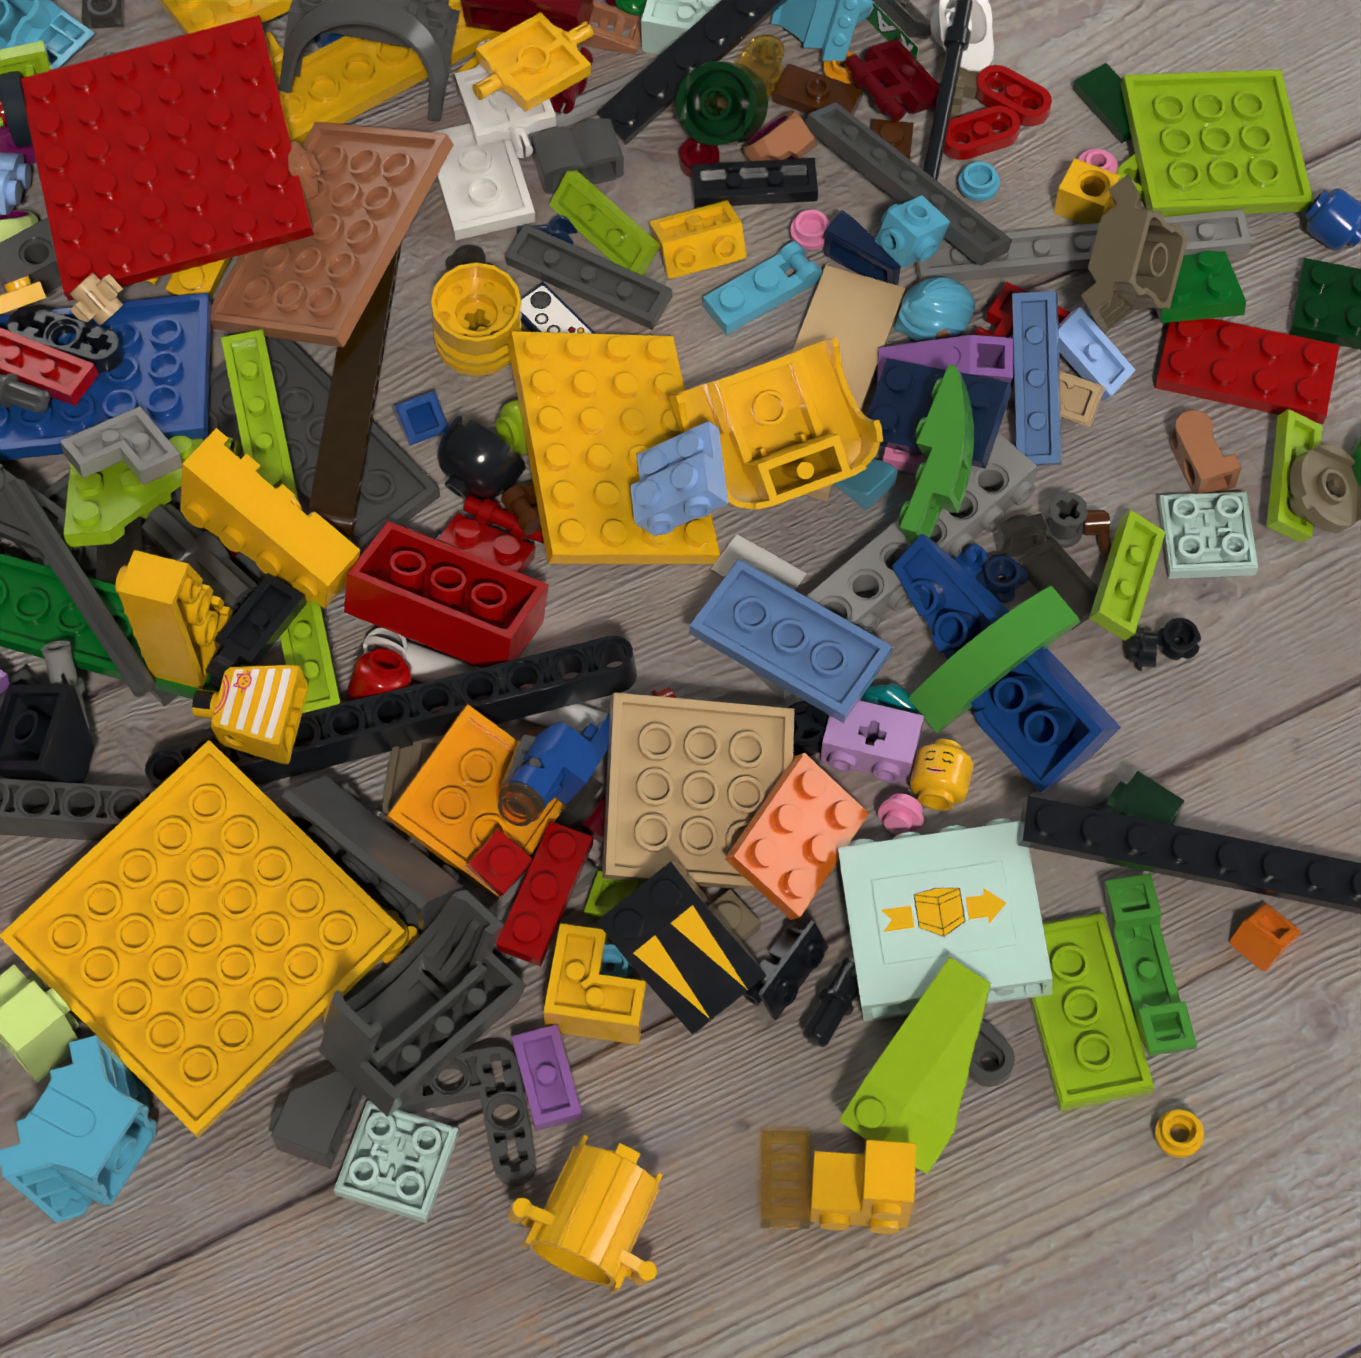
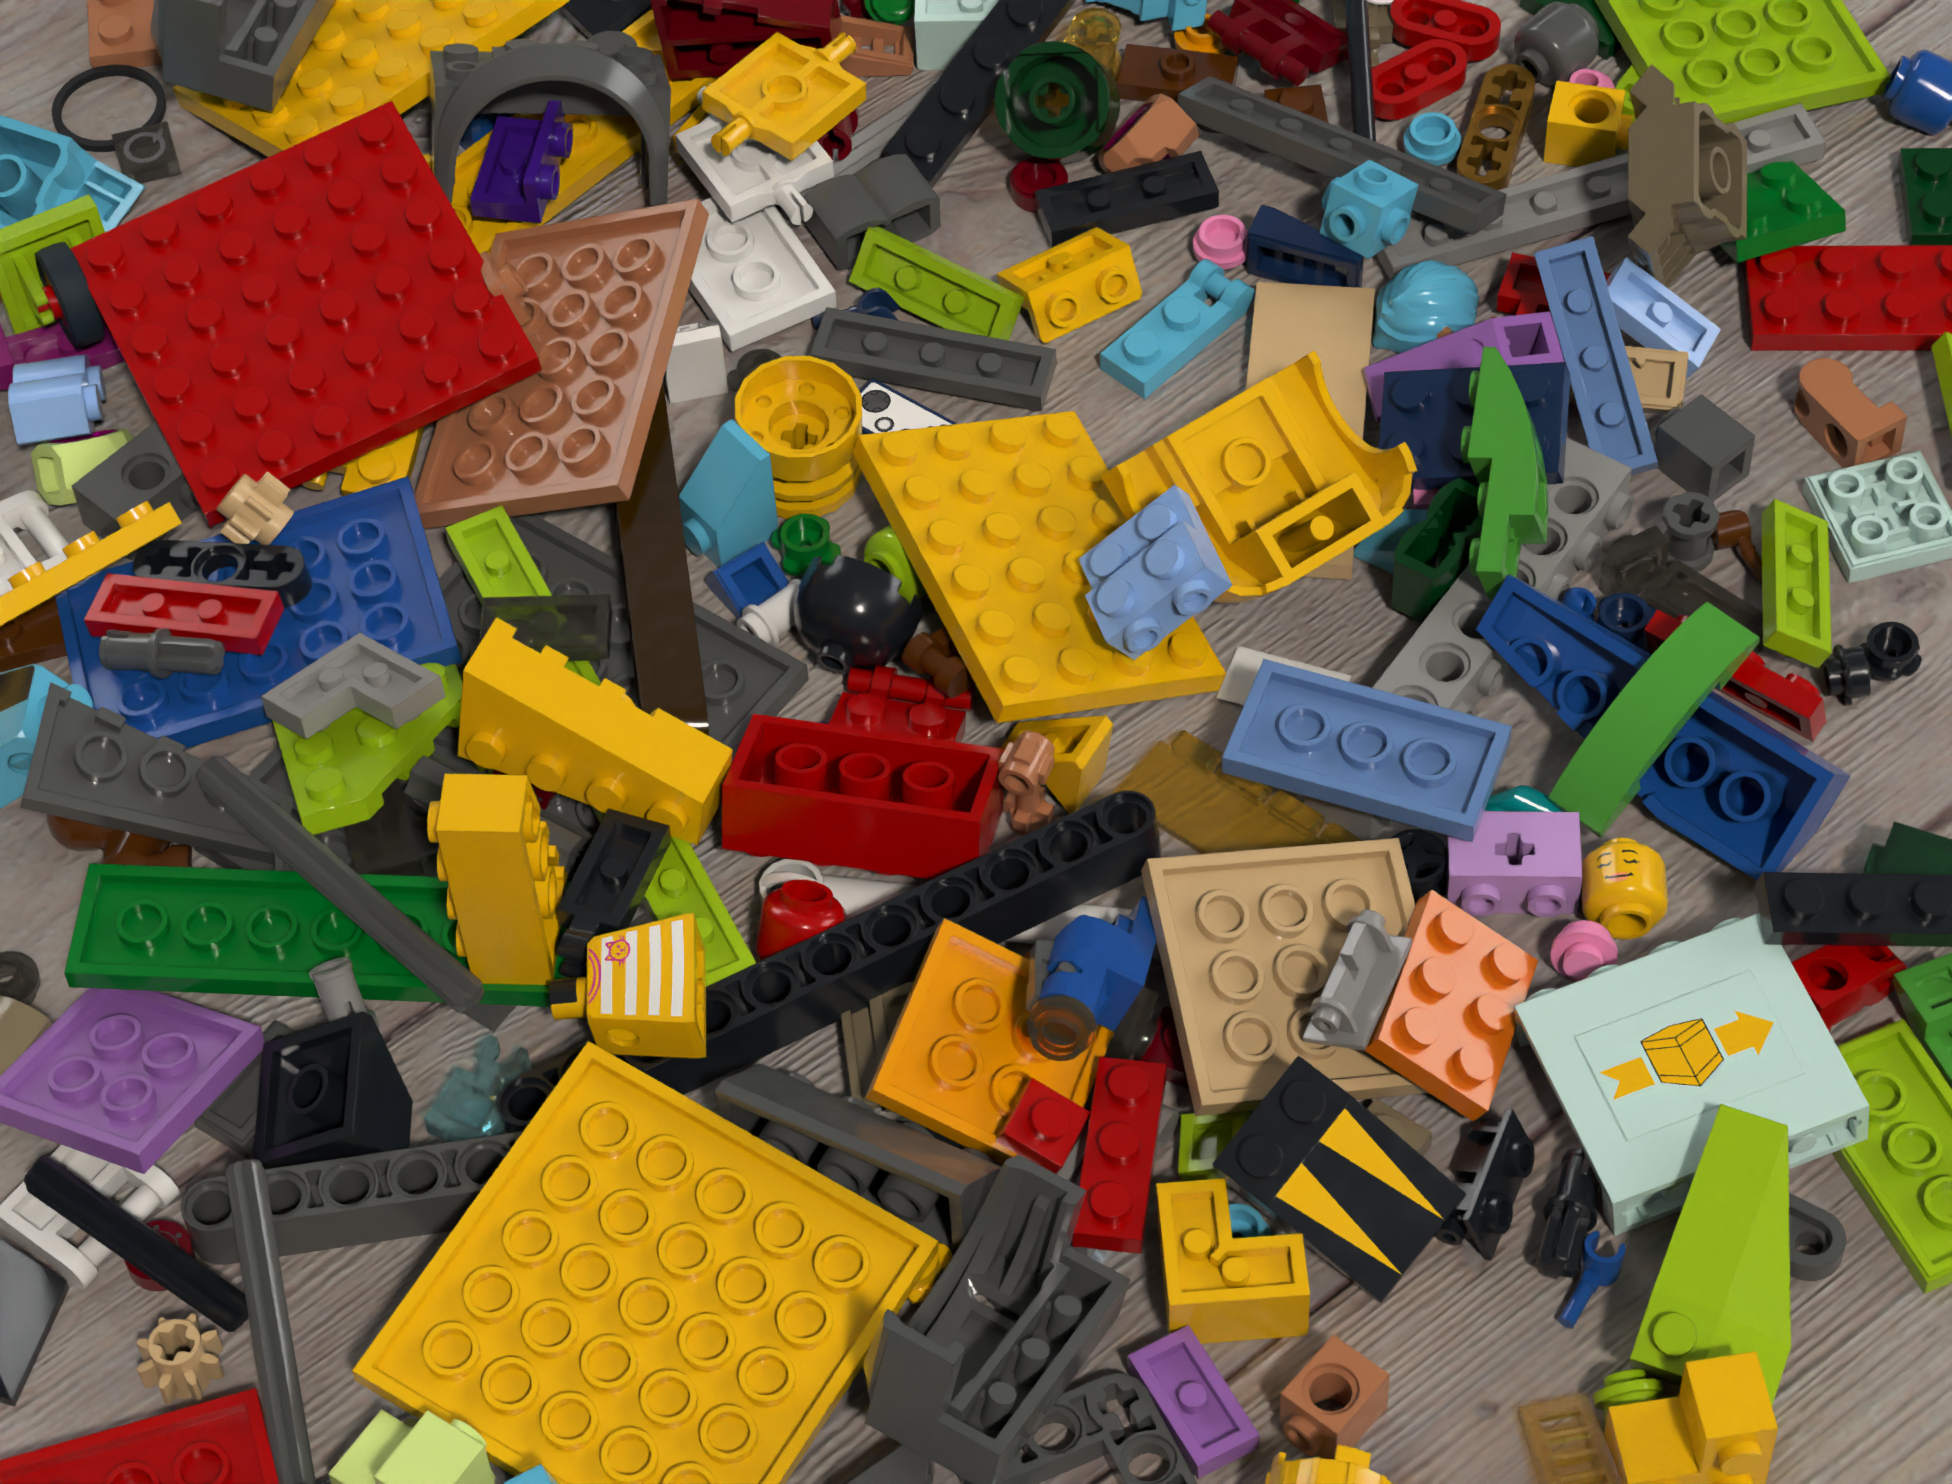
camera: 10 degrees left, 10 degrees down
(128, 757) = (469, 1099): none -> clear light blue plate
(265, 429) = (567, 623): none -> clear smoke plate
(345, 75) = (522, 166): none -> dark purple bracket
(417, 356) = (729, 497): none -> medium azure slope
(425, 446) = (772, 616): none -> white pin
(426, 242) = (696, 363): none -> white slope
(465, 386) = (800, 532): none -> green plate
(556, 606) = (1022, 772): none -> nougat bar
(588, 592) = (1079, 754): none -> yellow slope
(640, 1080) = (1337, 1375): none -> nougat brick
(689, 663) = (1220, 809): none -> clear yellow windscreen
(733, 813) = (1358, 984): none -> light grey hinge
(835, 1139) = (1627, 1388): none -> lime plate
(840, 1047) = (1594, 1272): none -> blue hand
(881, 499) = (1435, 550): none -> dark green brick
(1025, 168) = (1490, 113): none -> pearl gold beam
(1066, 878) = (1847, 978): none -> red leg
(1085, 127) = (1557, 42): none -> dark grey head
(1095, 459) = (1703, 448): none -> dark grey brick
(1095, 660) = (1785, 700): none -> red plate

